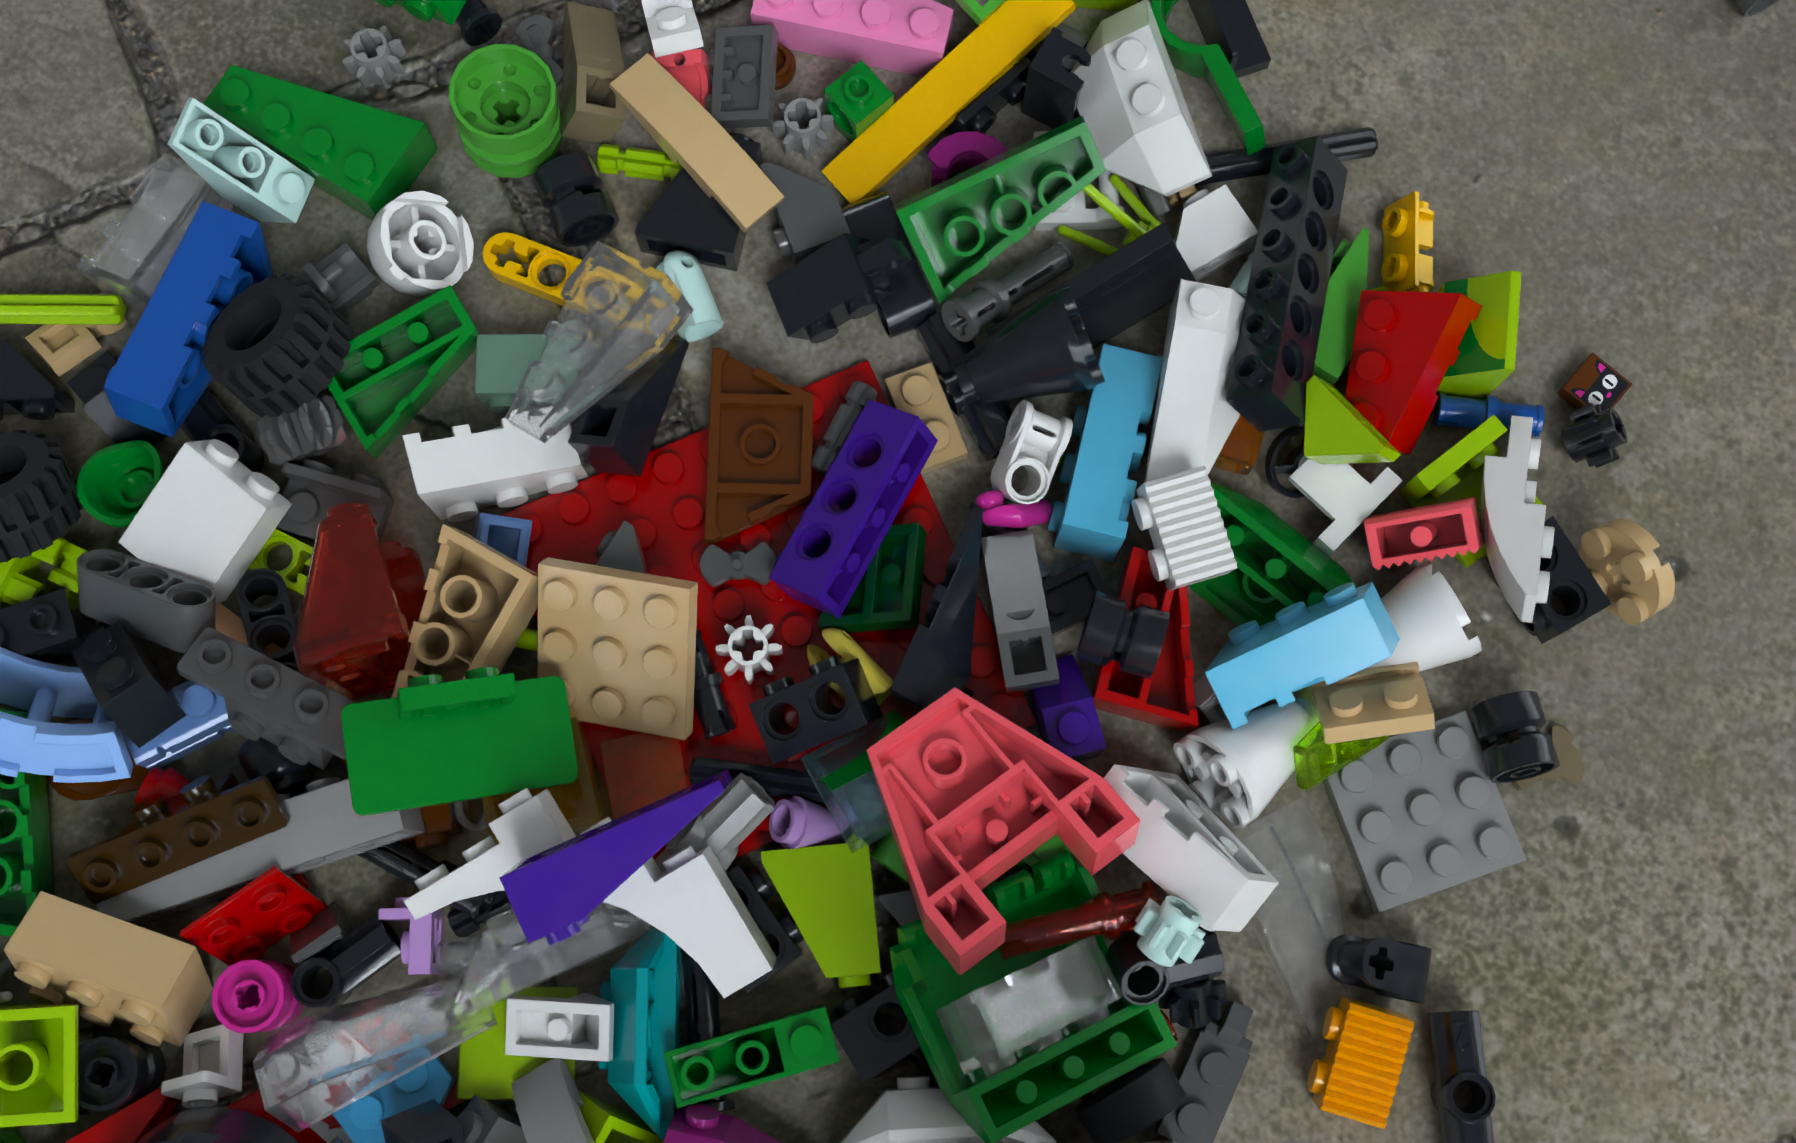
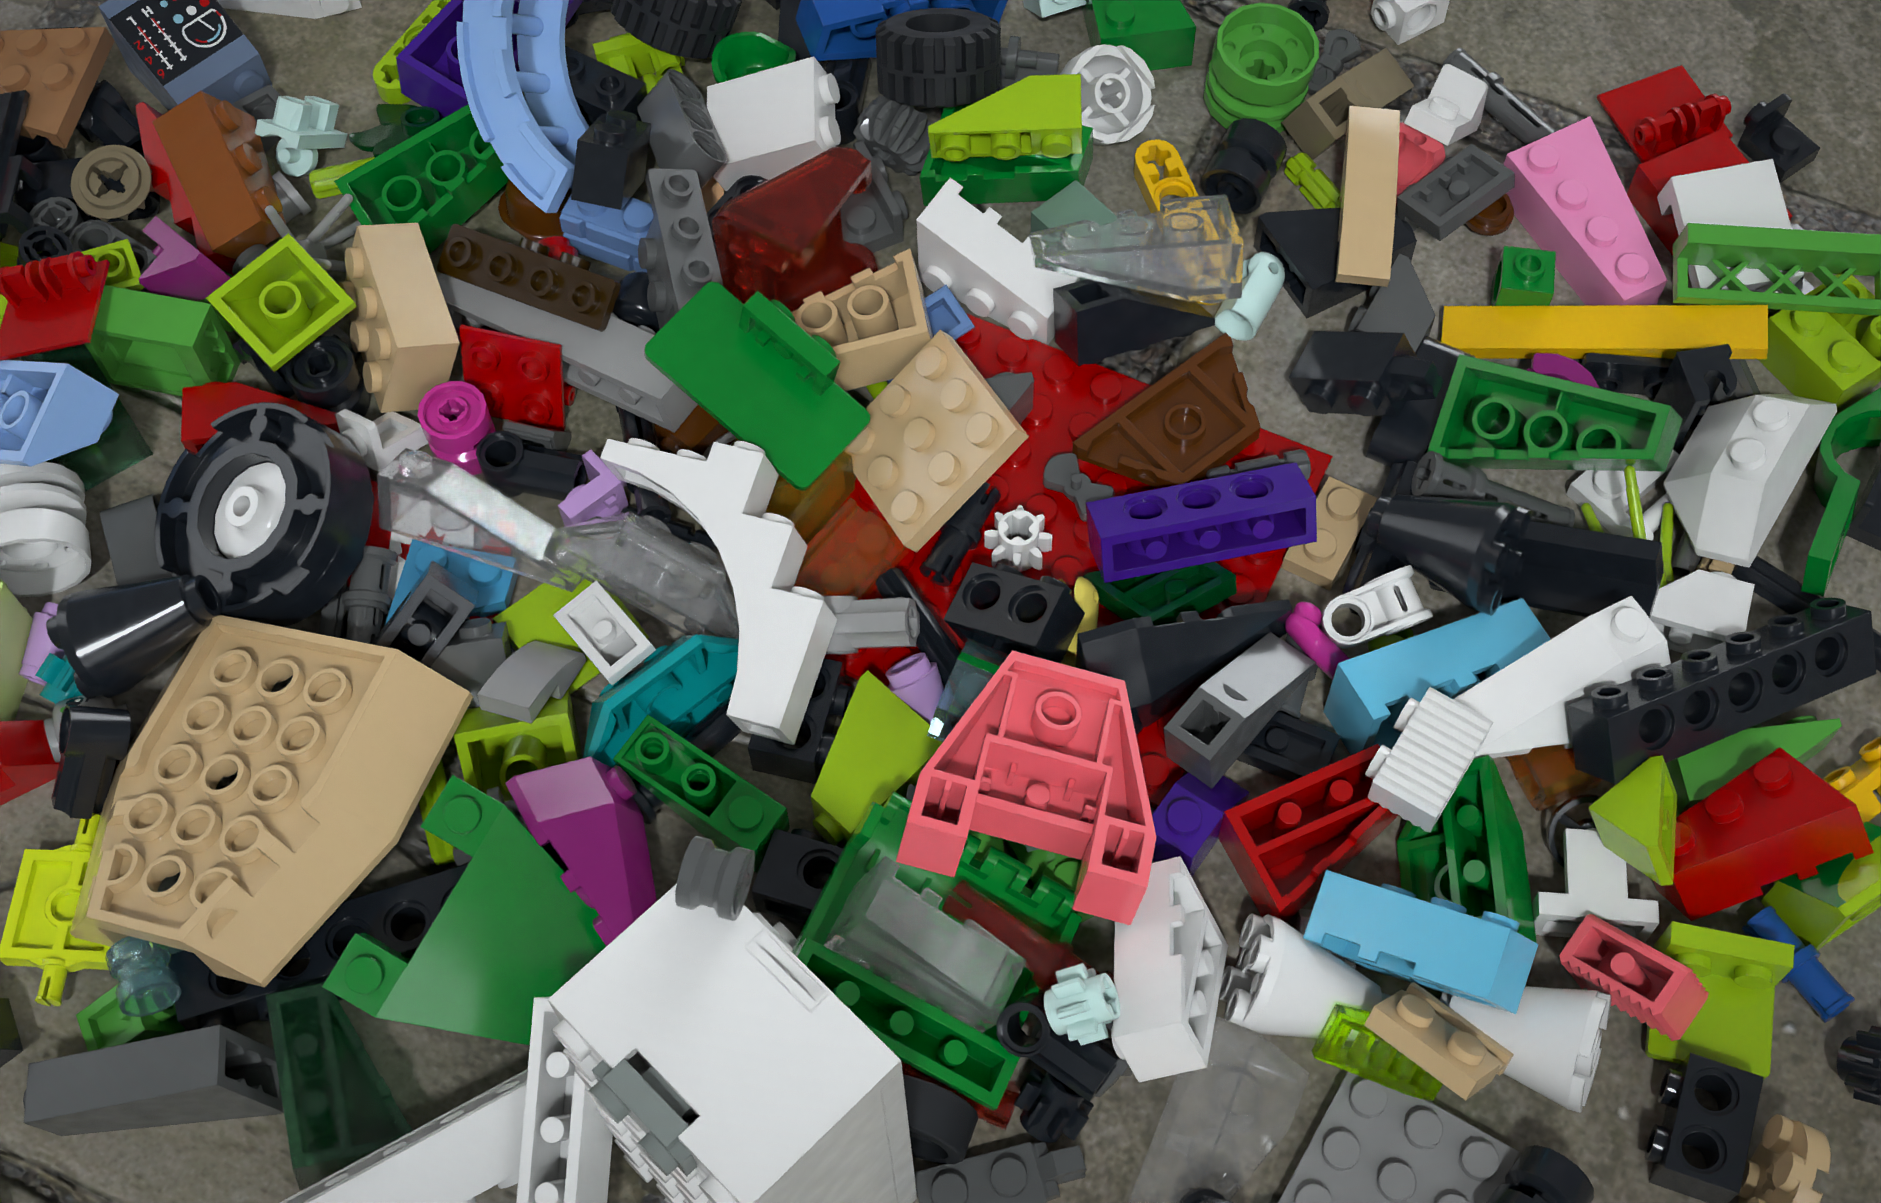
camera: 55 degrees right, 15 degrees down
(400, 329) = (1023, 119): none -> lime slope
(567, 882) = (754, 519): dark purple slope -> none
(807, 112) = (1465, 265): light grey gear -> none
(1123, 635) = (1295, 784): black wheel -> none
(1514, 523) = (1721, 1031): white slope -> none

